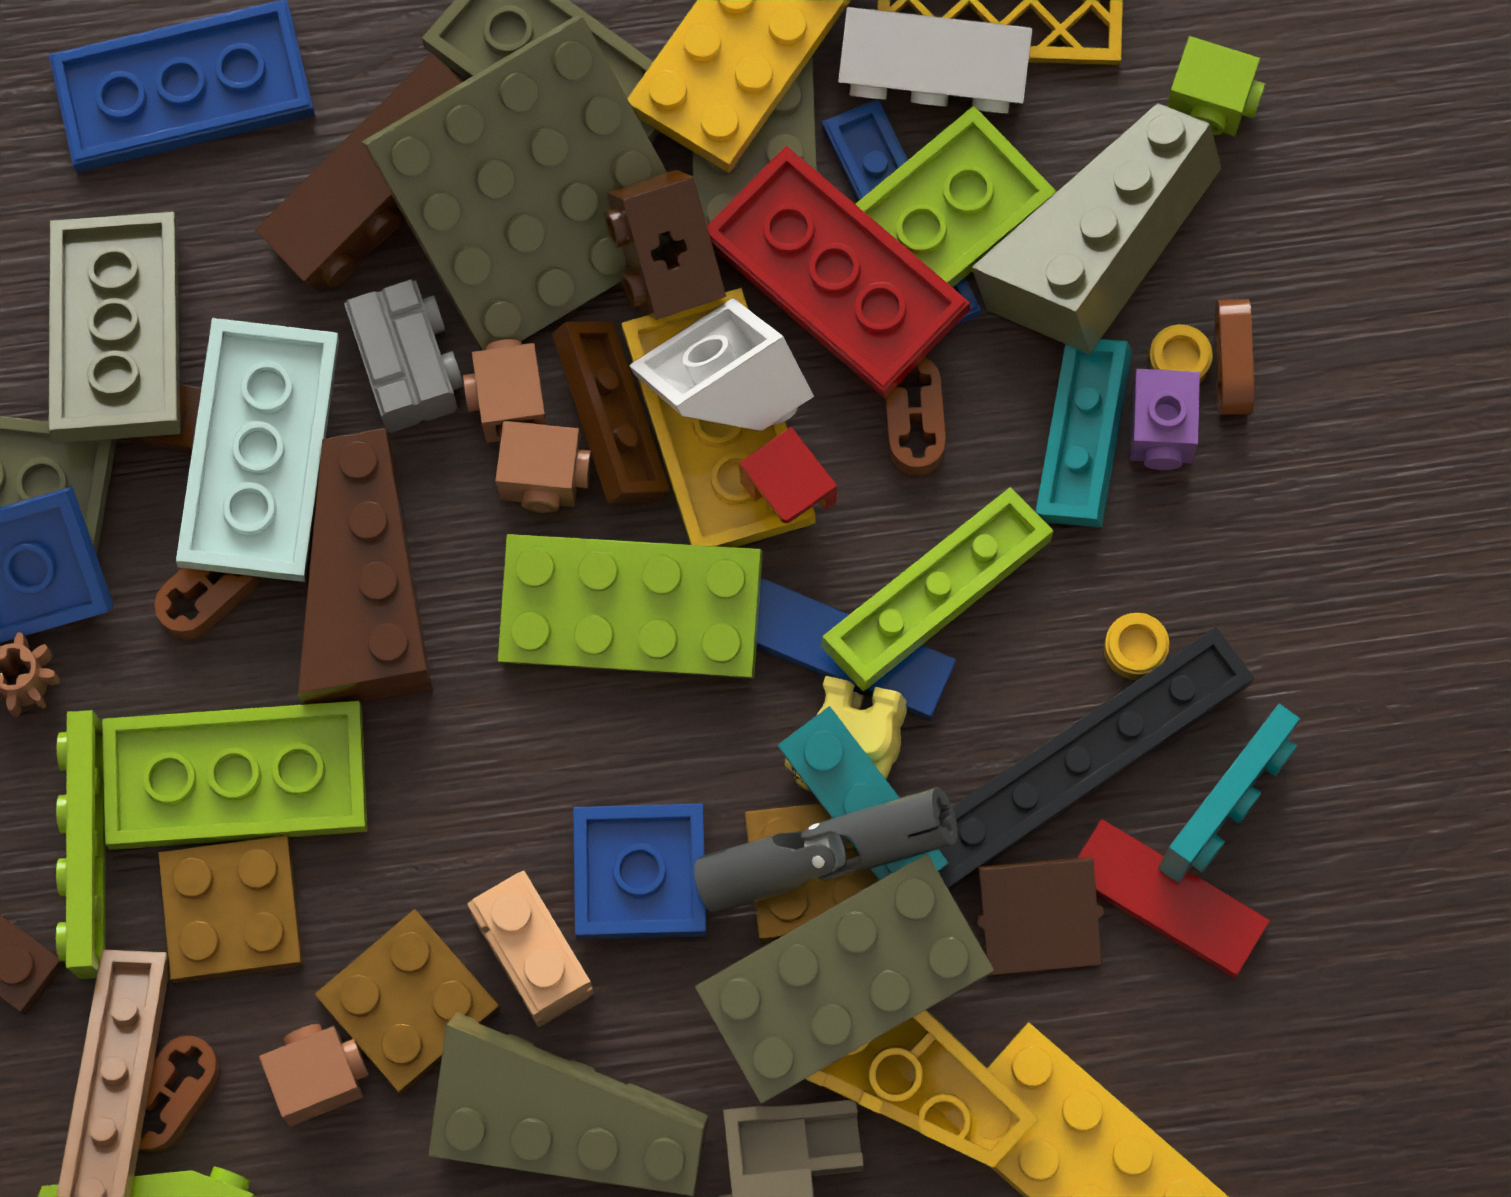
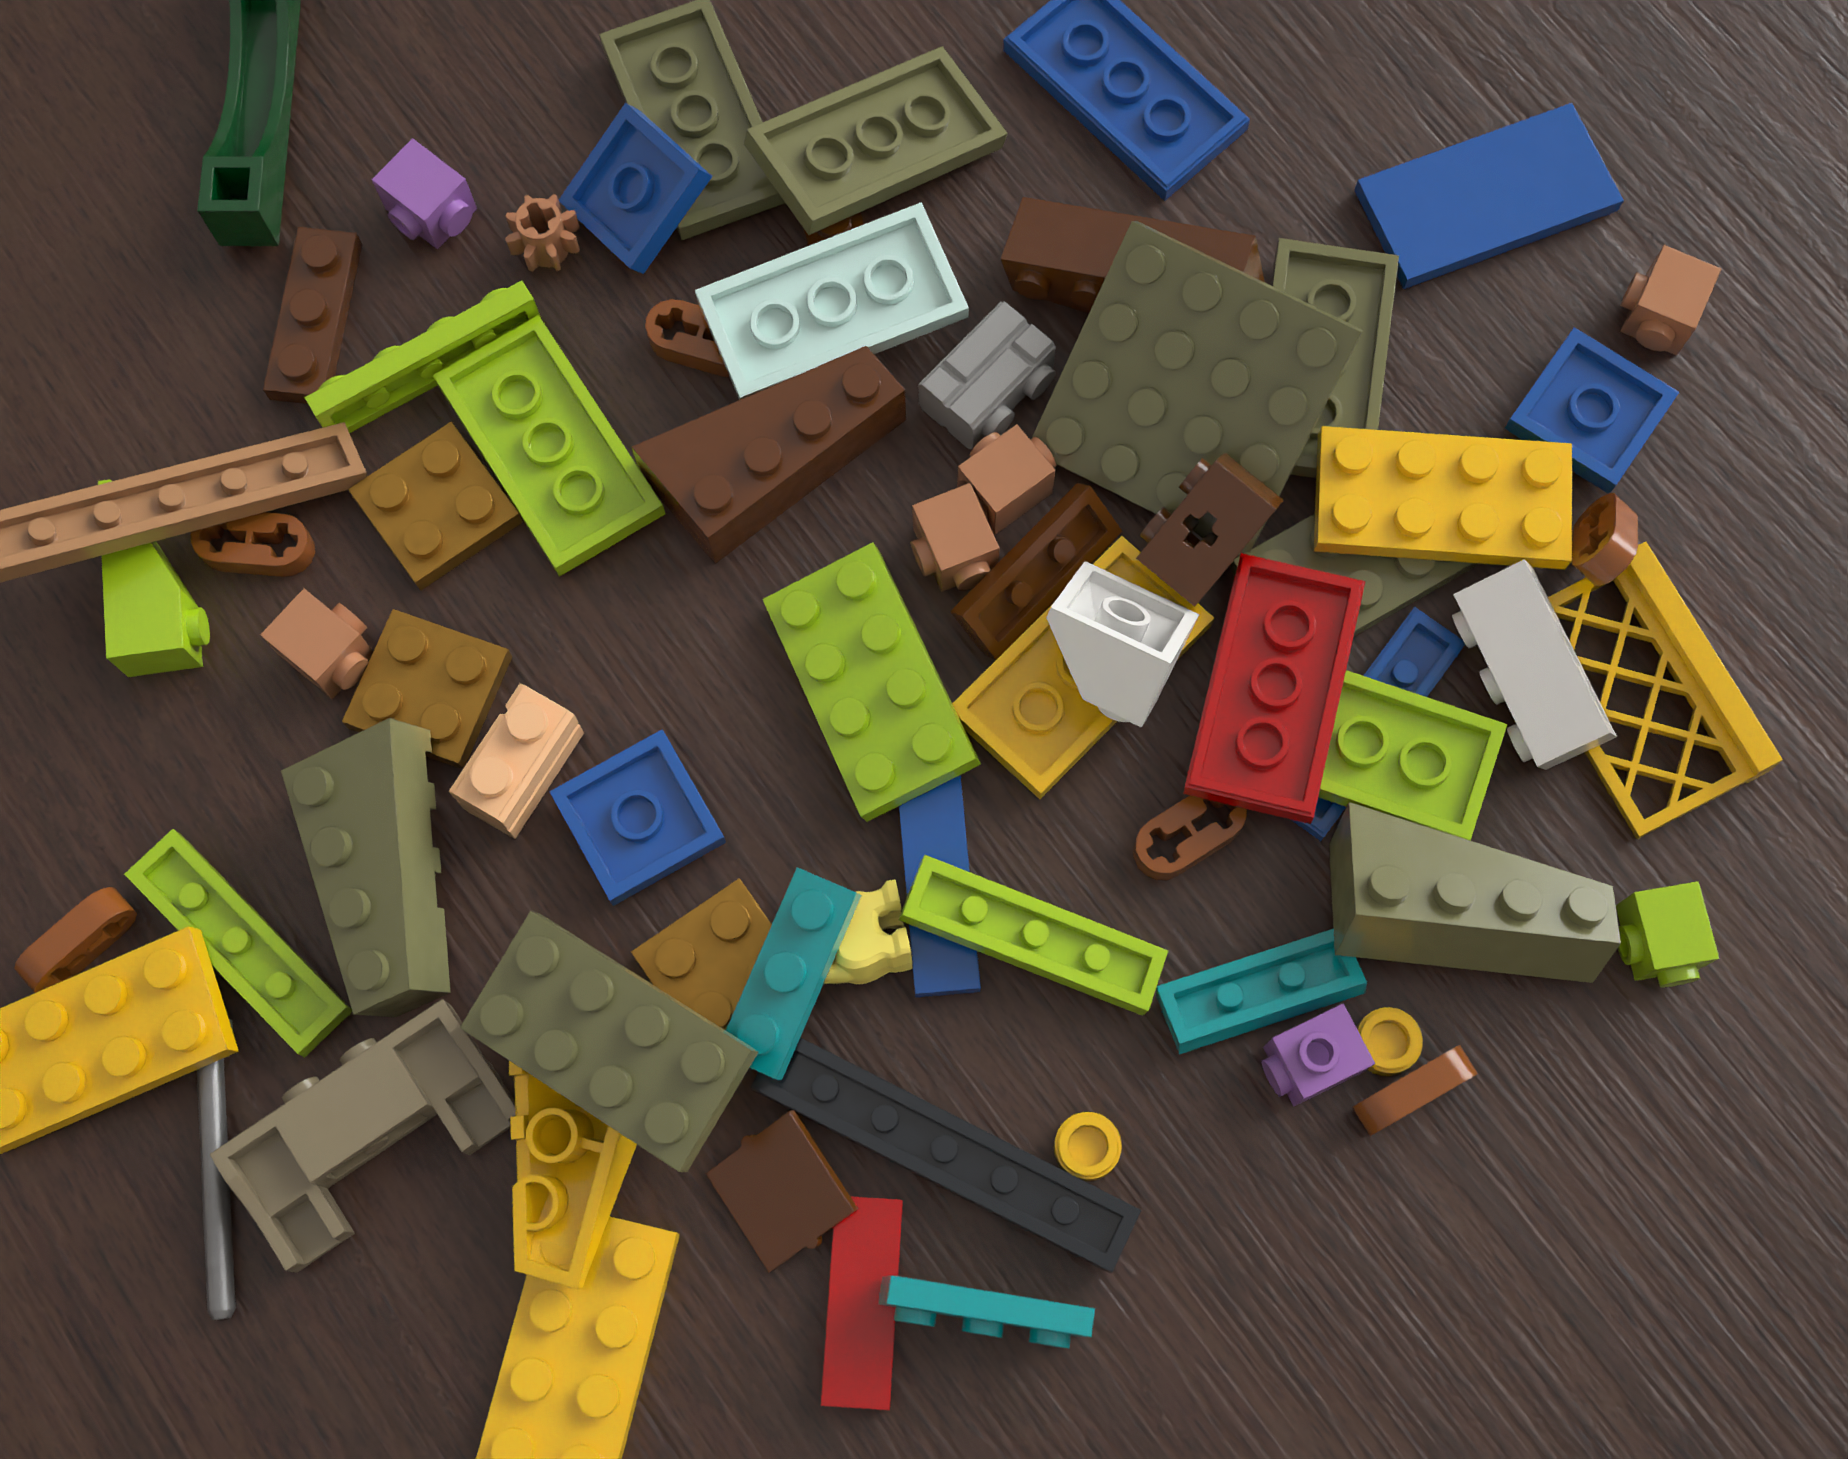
camera: 60 degrees right, 0 degrees up
(787, 477) = (1052, 745): red panel -> none
(788, 860) = (722, 964): dark grey piece -> none

